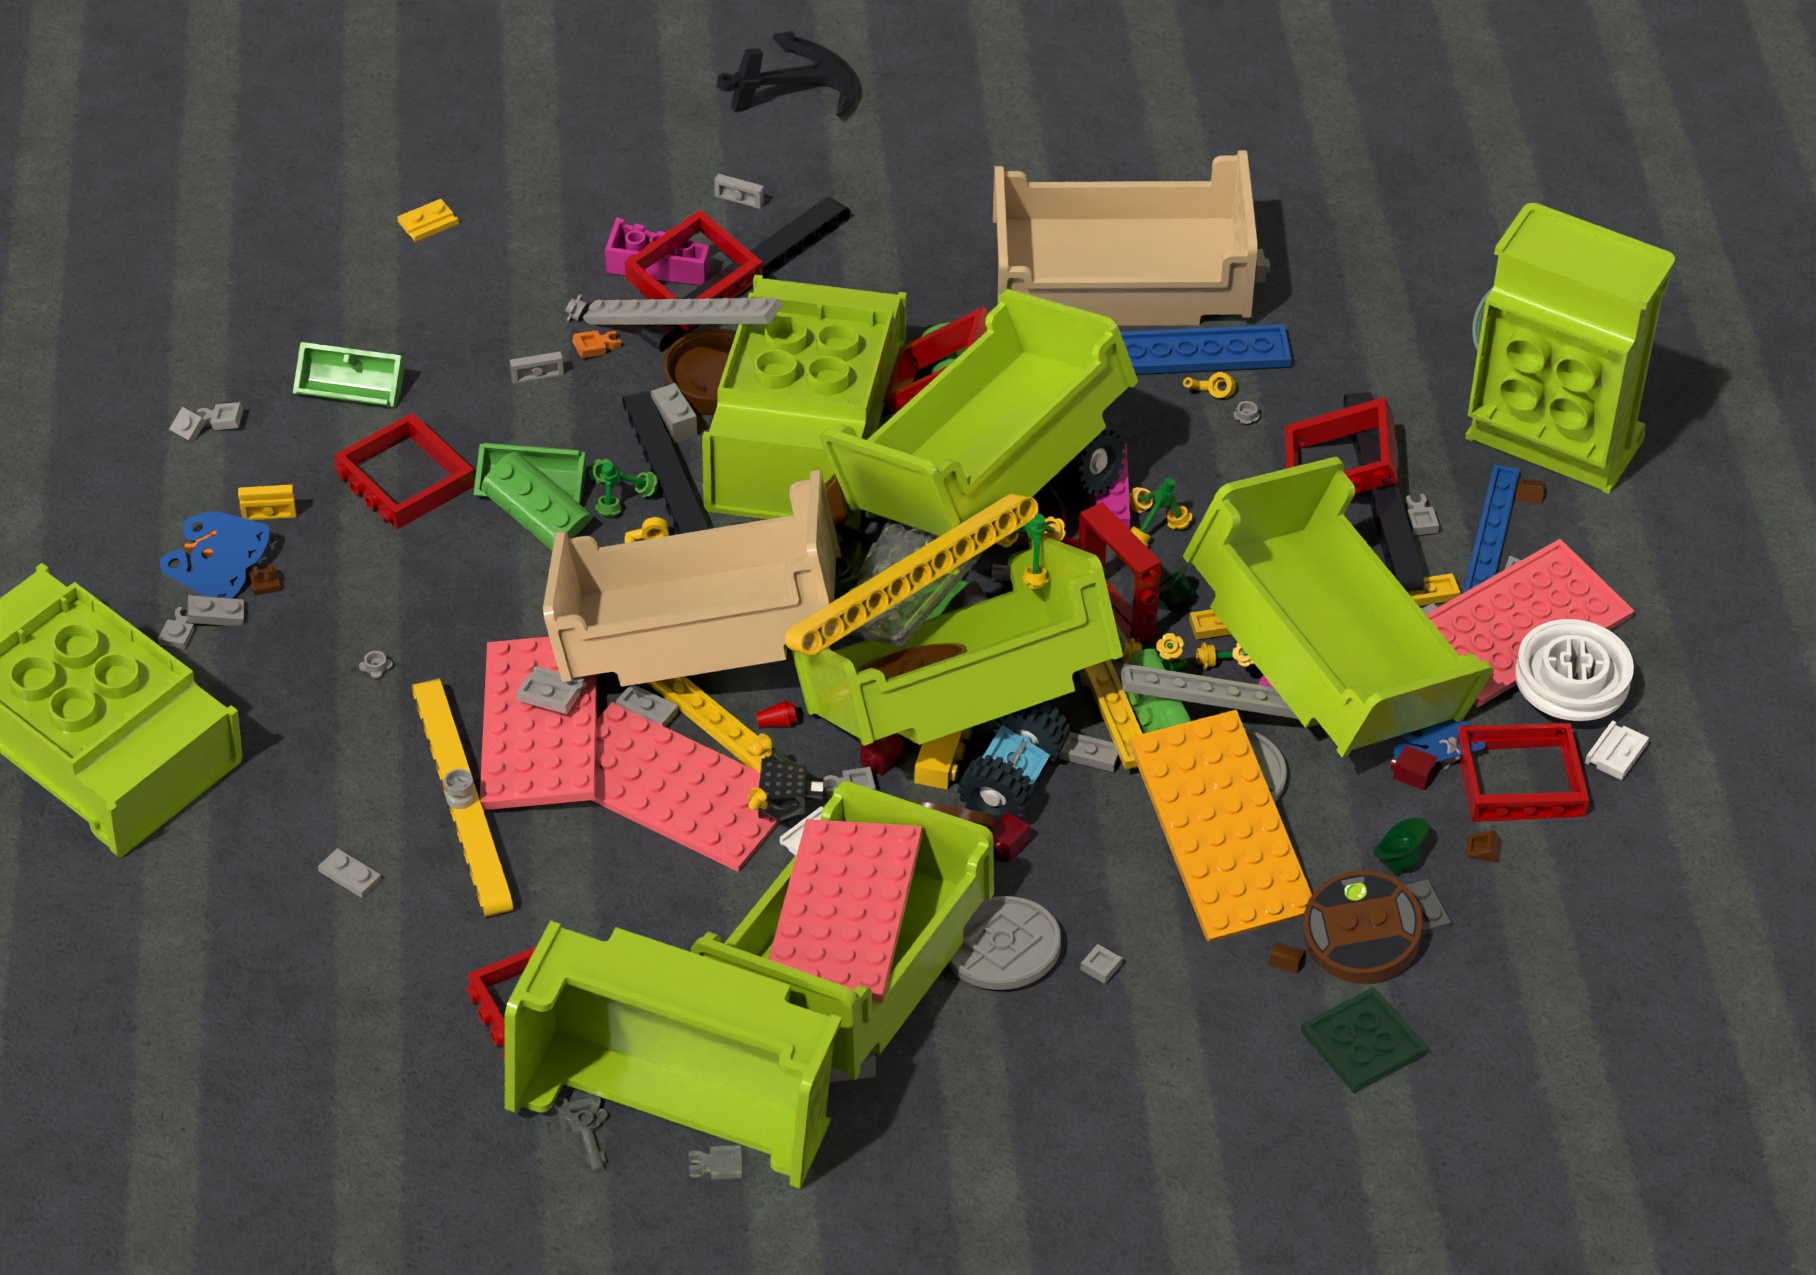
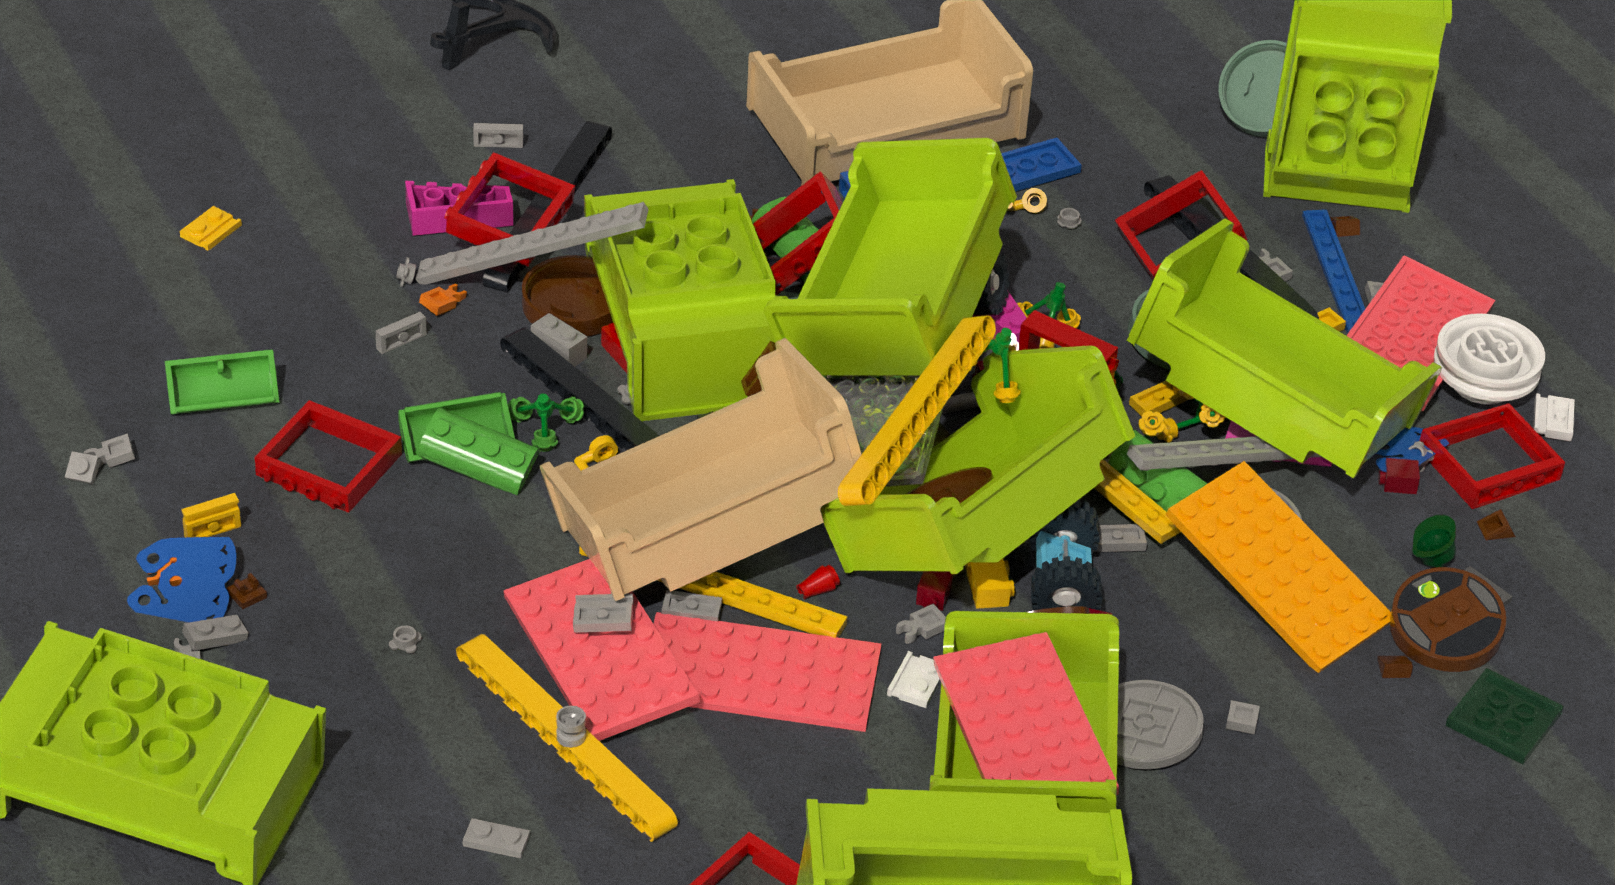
camera: 25 degrees left, 5 degrees down
(781, 784) = (869, 639): black torso -> none

